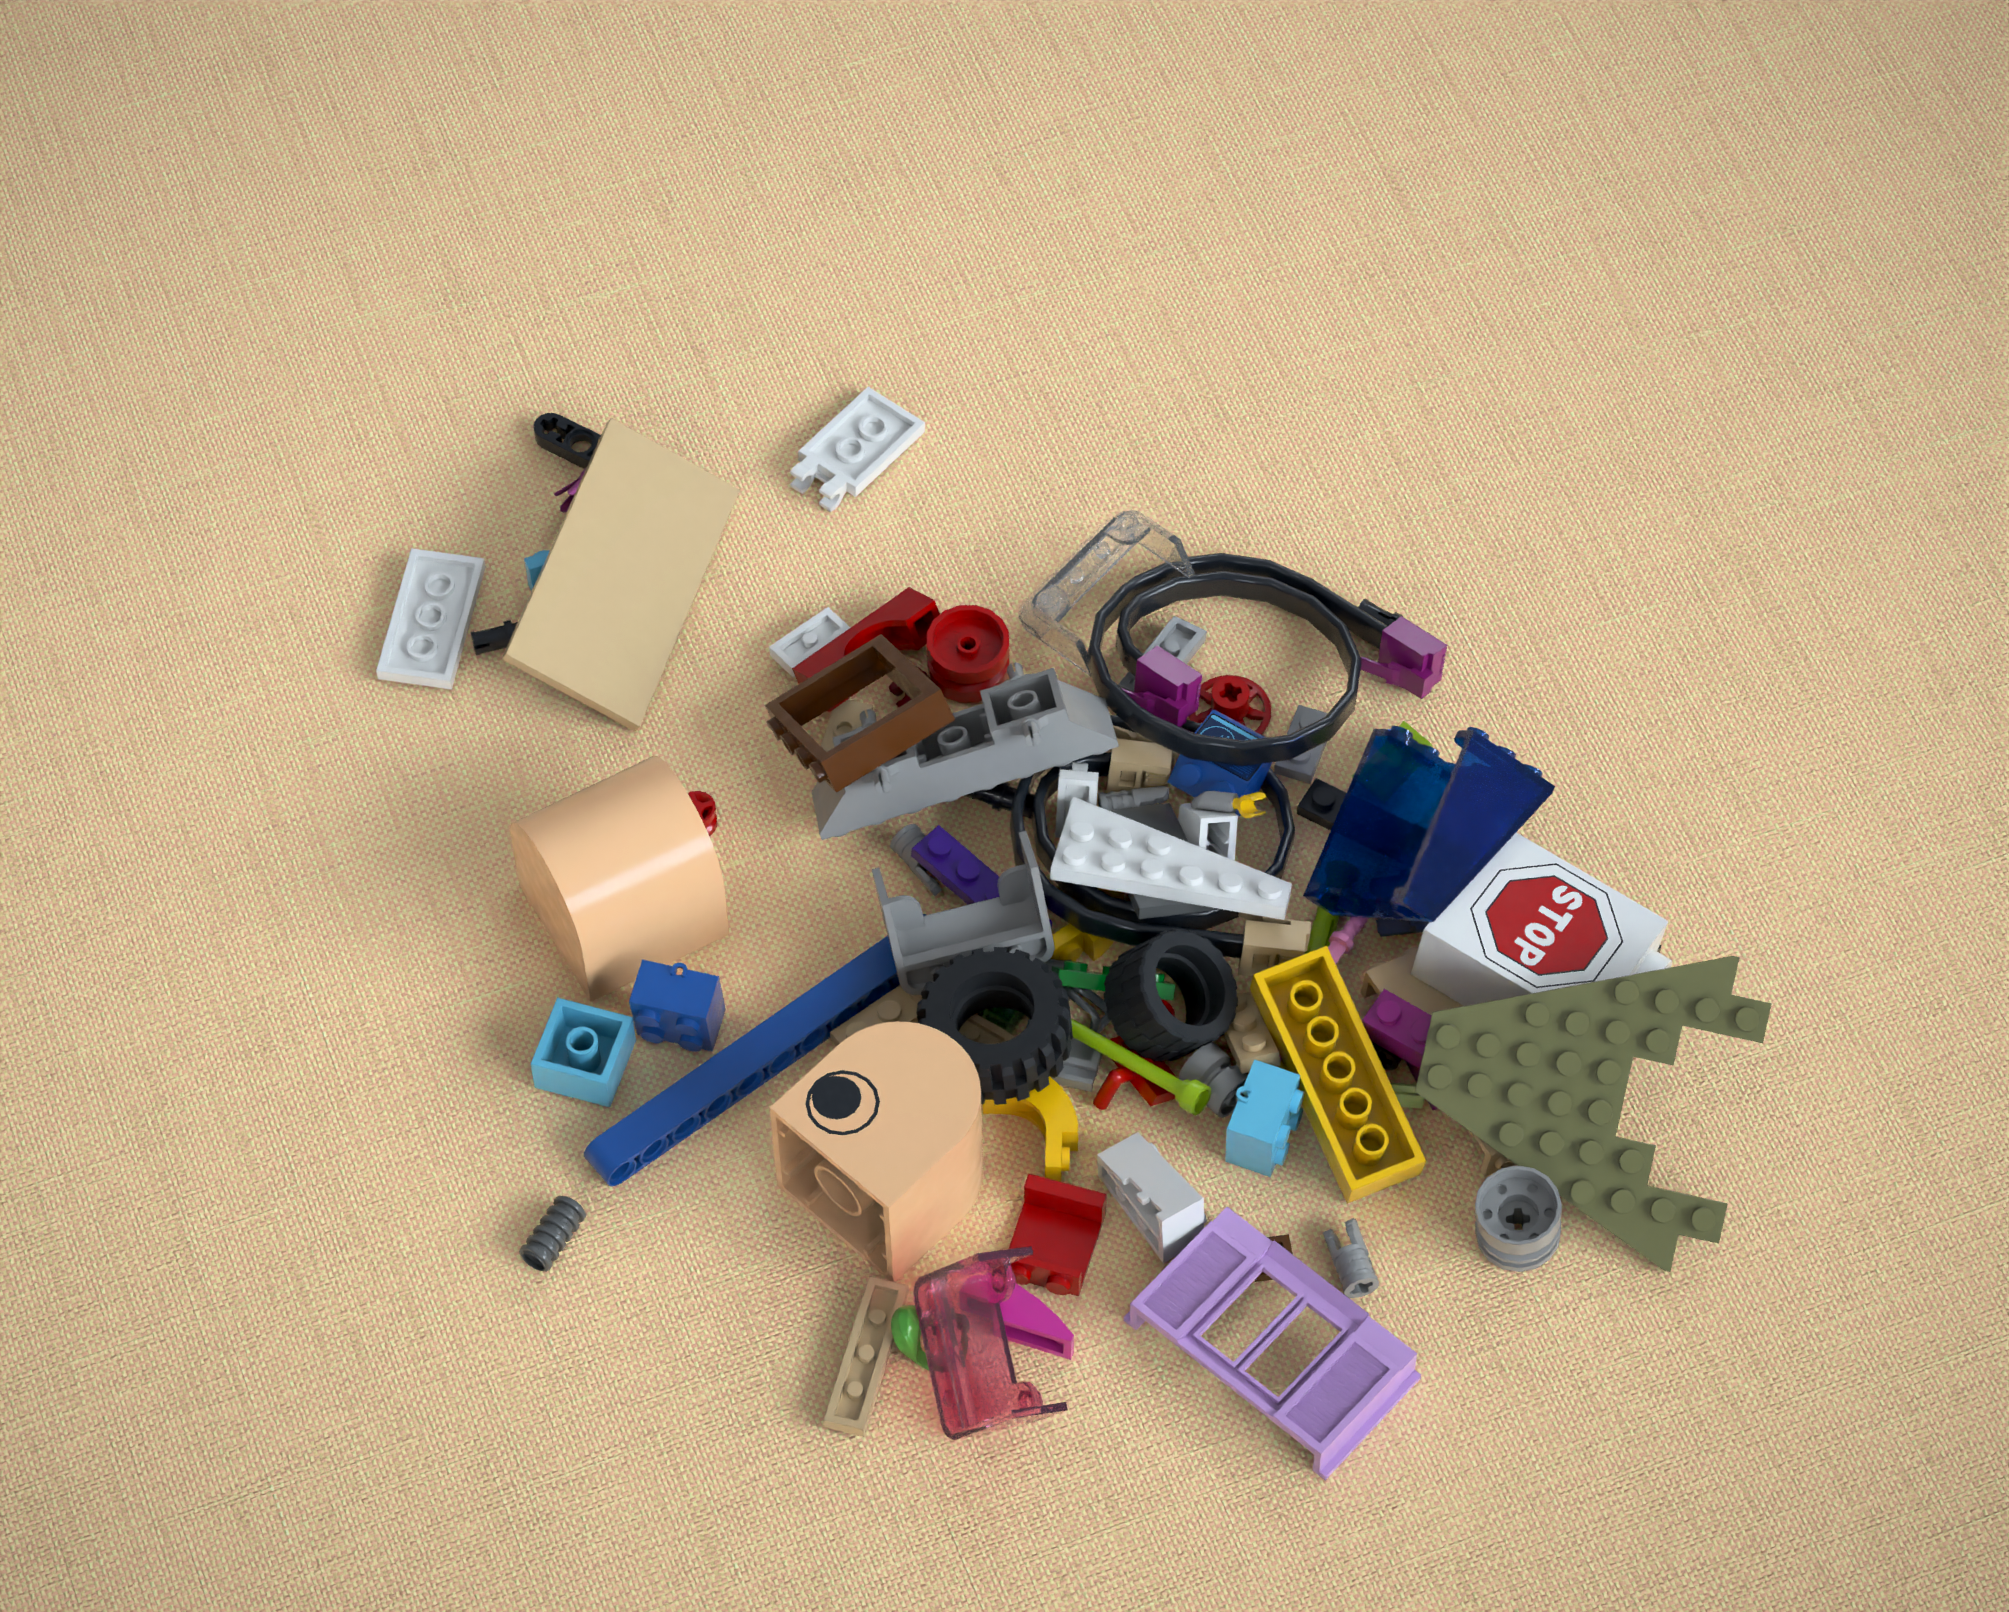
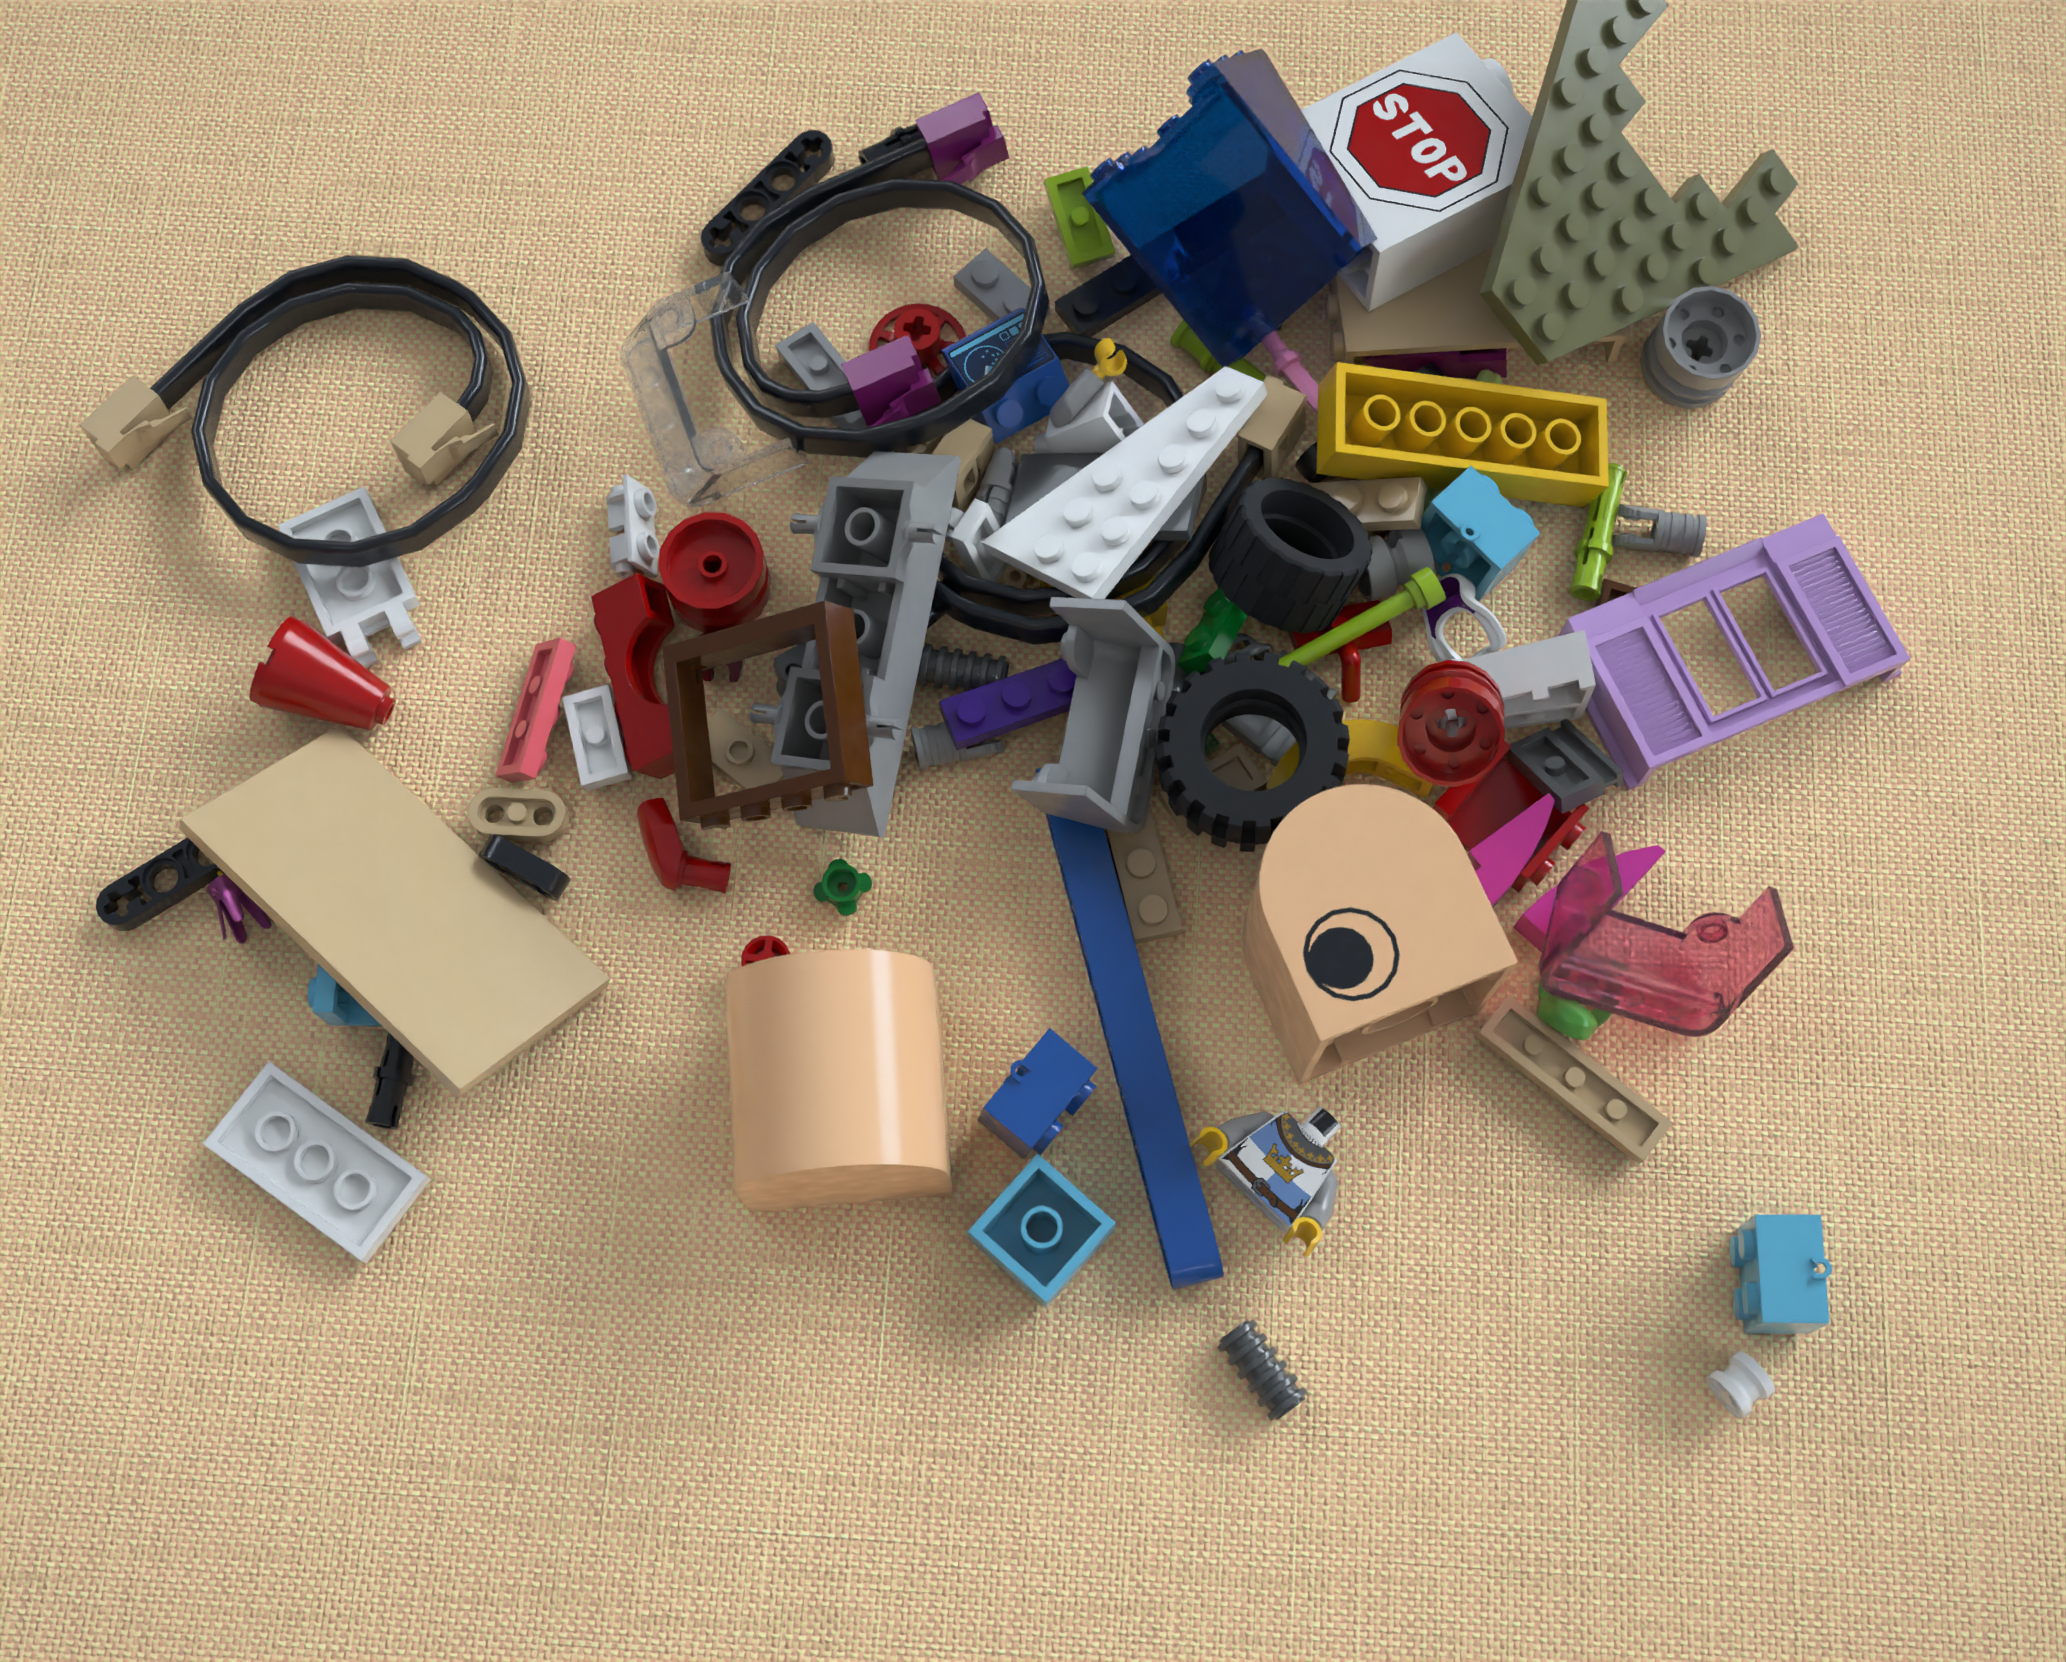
camera: 65 degrees left, 15 degrees up
(685, 1545) = (1740, 1384): none -> white wheel
(693, 641) = (524, 867): none -> black beam
(703, 1183) = (1279, 1168): none -> torso
(732, 624) = (521, 814): none -> tan plate
(741, 726) = (667, 853): none -> red arm
(762, 458) = (319, 680): none -> red cone
(775, 1529) = (1778, 1274): none -> medium azure brick
(778, 828) = (836, 874): none -> green plate
(811, 598) = (536, 711): none -> coral plate
(973, 441) = (428, 446): none -> black piece
(973, 1233) = (1507, 851): none -> dark pink slope
(980, 836) = (959, 669): none -> dark grey piece
(988, 591) = (632, 509): none -> white hinge
(1083, 1141) = (1446, 749): none -> red wheel
(1108, 1254) = (1564, 765): none -> dark grey plate
(1203, 1130) = (1460, 597): none -> white piece
(1301, 555) = (763, 194): none -> black beam
(1323, 1216) = (1594, 548): none -> lime pin
(1398, 1027) = (1456, 339): magenta brick -> none

